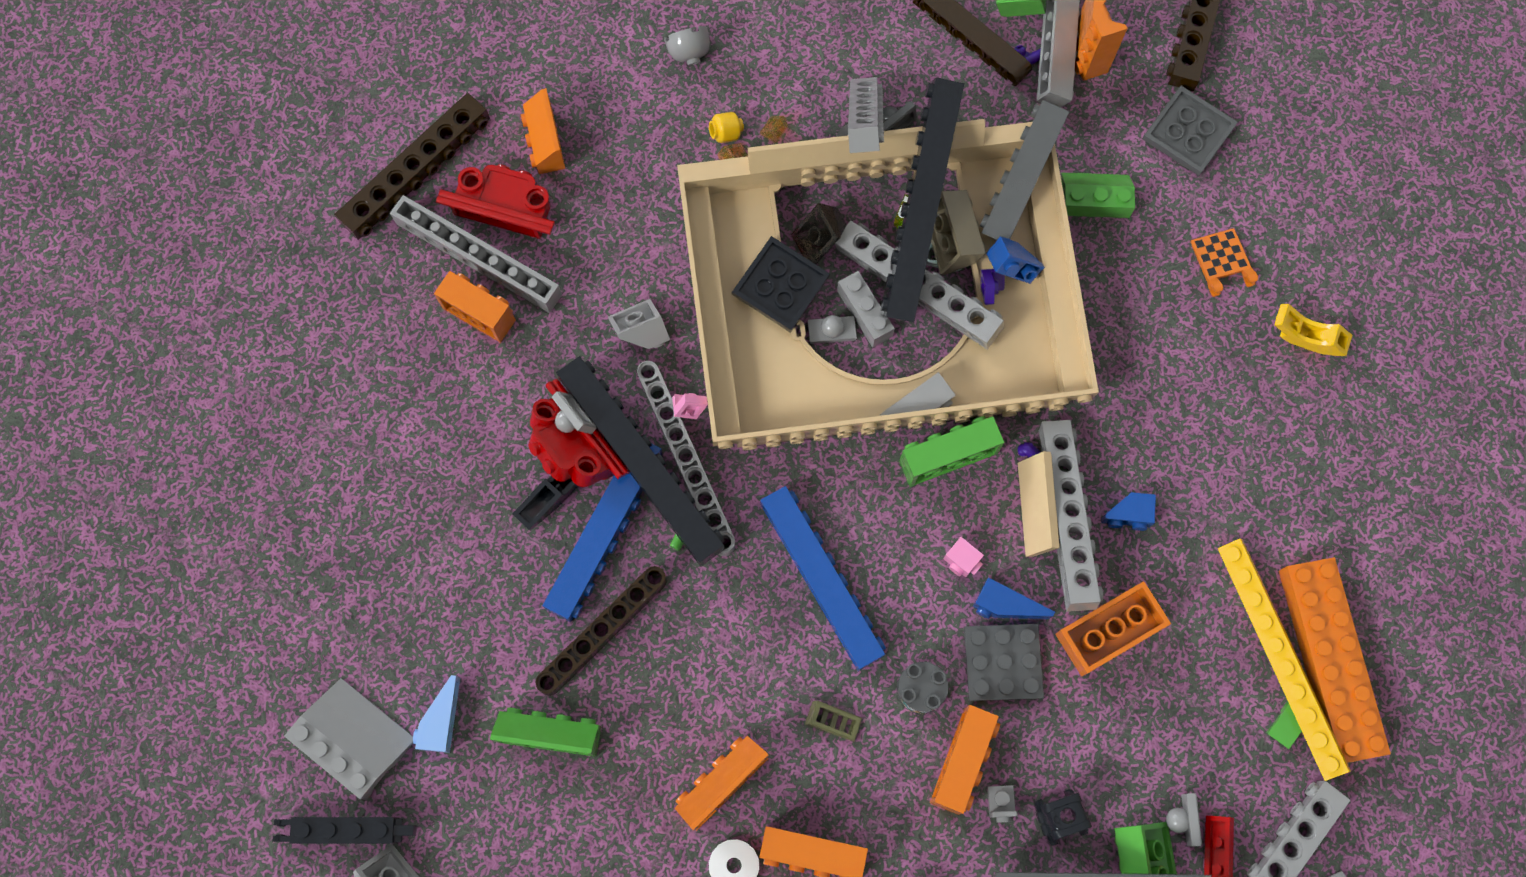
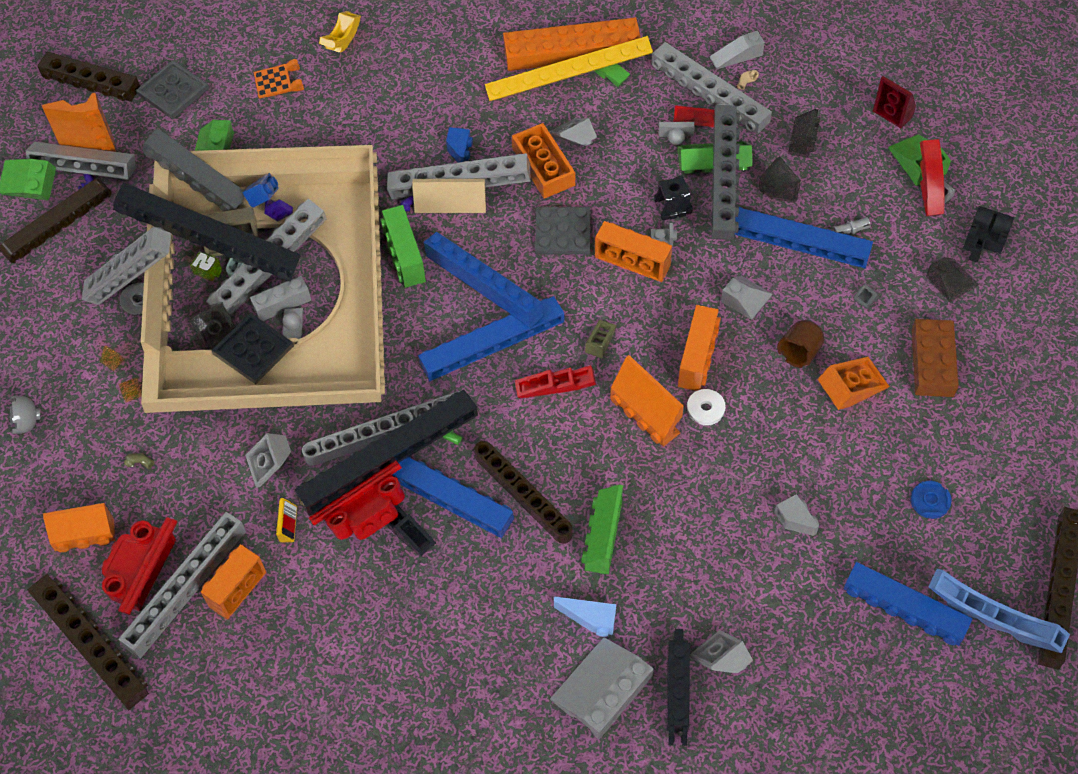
camera: 85 degrees left, 15 degrees down
(558, 355) = (286, 521): none -> slope
(571, 415) = (347, 499): light grey tile -> none
(641, 181) = (133, 458): none -> olive arm
(689, 405) = (346, 415): bright pink bracket -> none
(726, 127) = (104, 391): yellow head -> none
(761, 664) = (557, 382): none -> red slope
(902, 559) = (484, 279): none -> blue brick
(922, 687) = (579, 277): dark grey brick -> none
(929, 395) = (358, 257): light grey slope -> none
(963, 558) = (484, 247): bright pink brick -> none
(1003, 602) = (518, 225): blue slope -> none
(1170, 668) = (576, 131): none -> light grey slope

